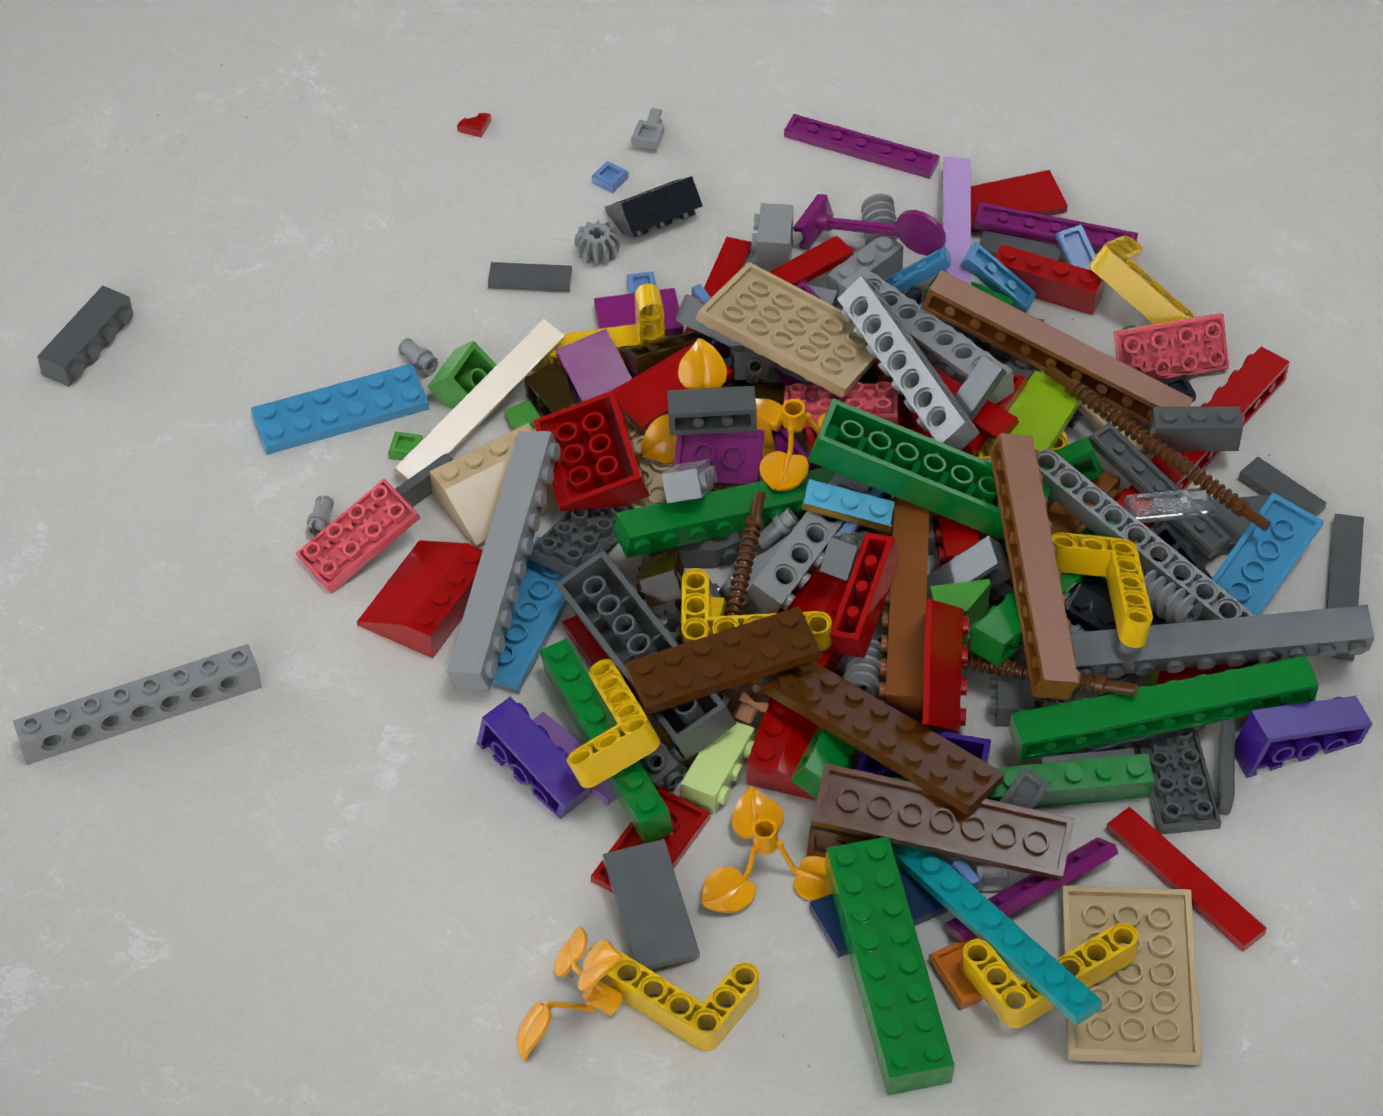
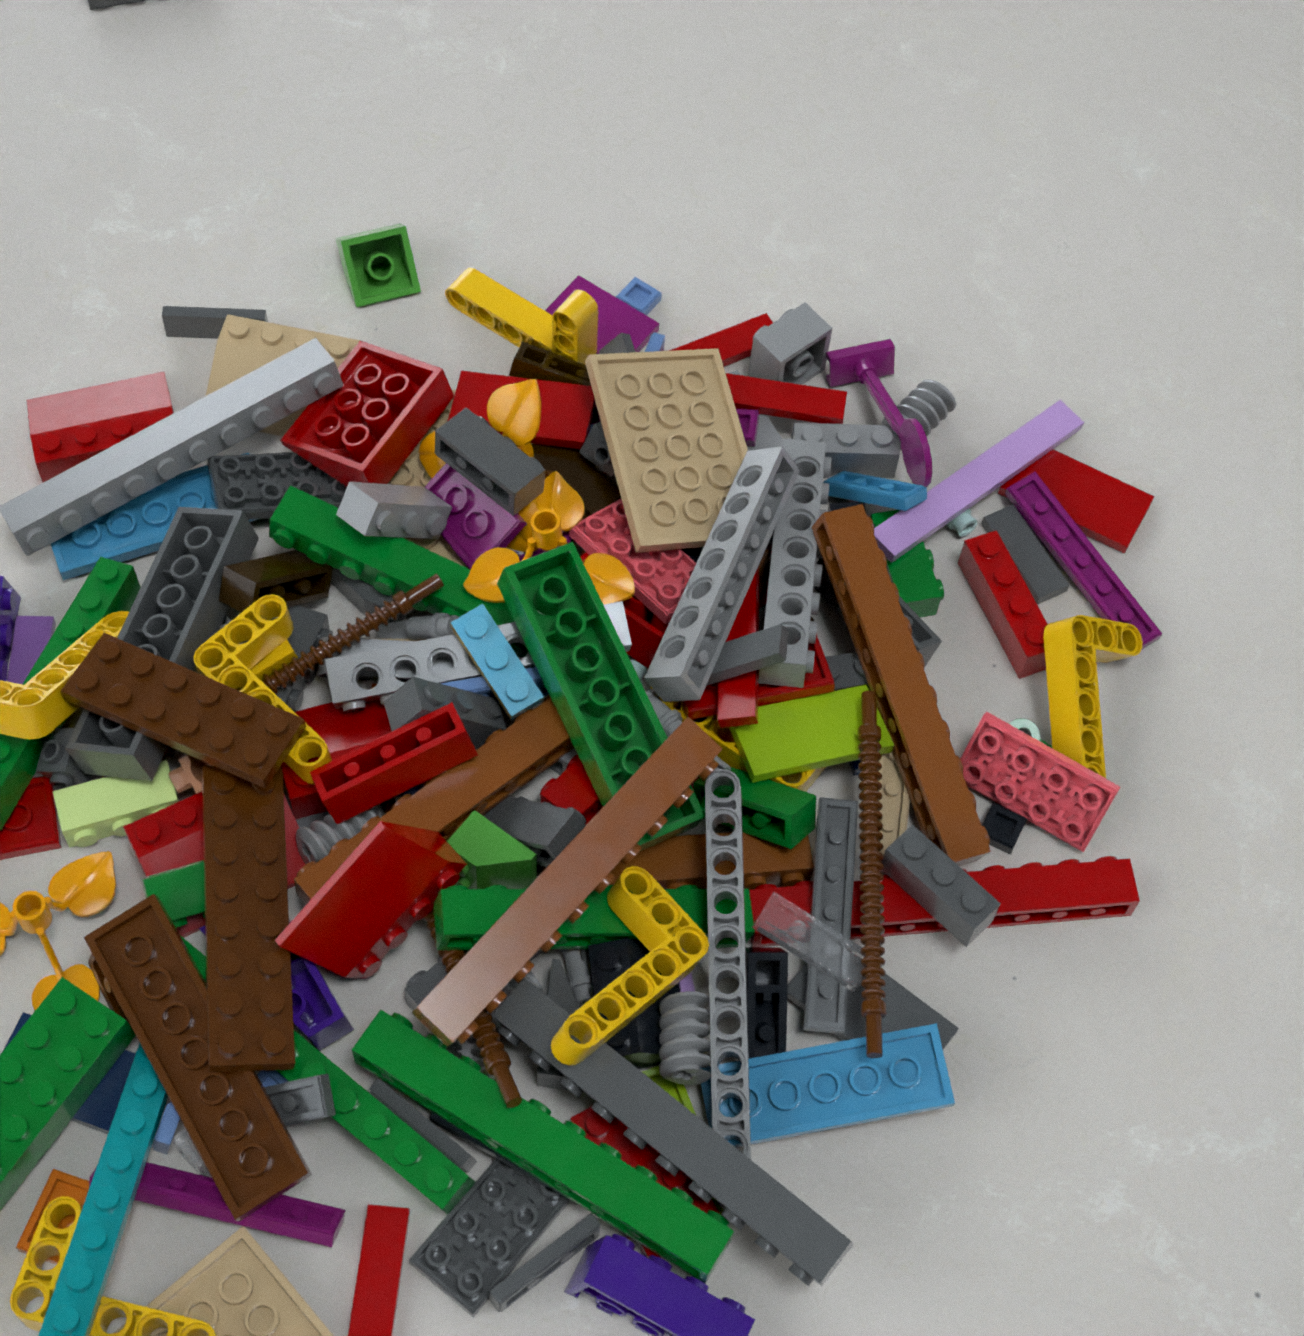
camera: 40 degrees right, 10 degrees up
(320, 517) = (109, 284): light grey pin -> none
(339, 408) = (255, 200): dark azure plate -> none
(357, 535) = (111, 323): coral tile -> none
(403, 444) = (261, 279): bright green tile -> none
(420, 357) = (370, 209): light grey pin -> none
(476, 125) = (687, 38): red tile -> none
(482, 399) = (361, 287): tile -> none
(521, 415) = (386, 332): bright green tile -> none
(530, 276) = (555, 211): dark grey tile -> none
(548, 390) = (429, 330): dark brown slope -> none
(593, 365) = (484, 337): magenta tile -> none
(597, 242) = (645, 225): light grey gear -> none
(610, 176) = (740, 175): medium blue tile -> none
(649, 132) = (824, 161): light grey plate -> none
(655, 207) = (736, 234): black slope -> none
(862, 146) = (1005, 329): magenta tile -> none
(998, 276) = (954, 562): dark azure tile -> none
(1076, 246) = (1077, 594): medium blue tile -> none
(1270, 480) = (977, 1030): dark grey tile -> none
(1345, 565) = (924, 1178): dark grey tile -> none

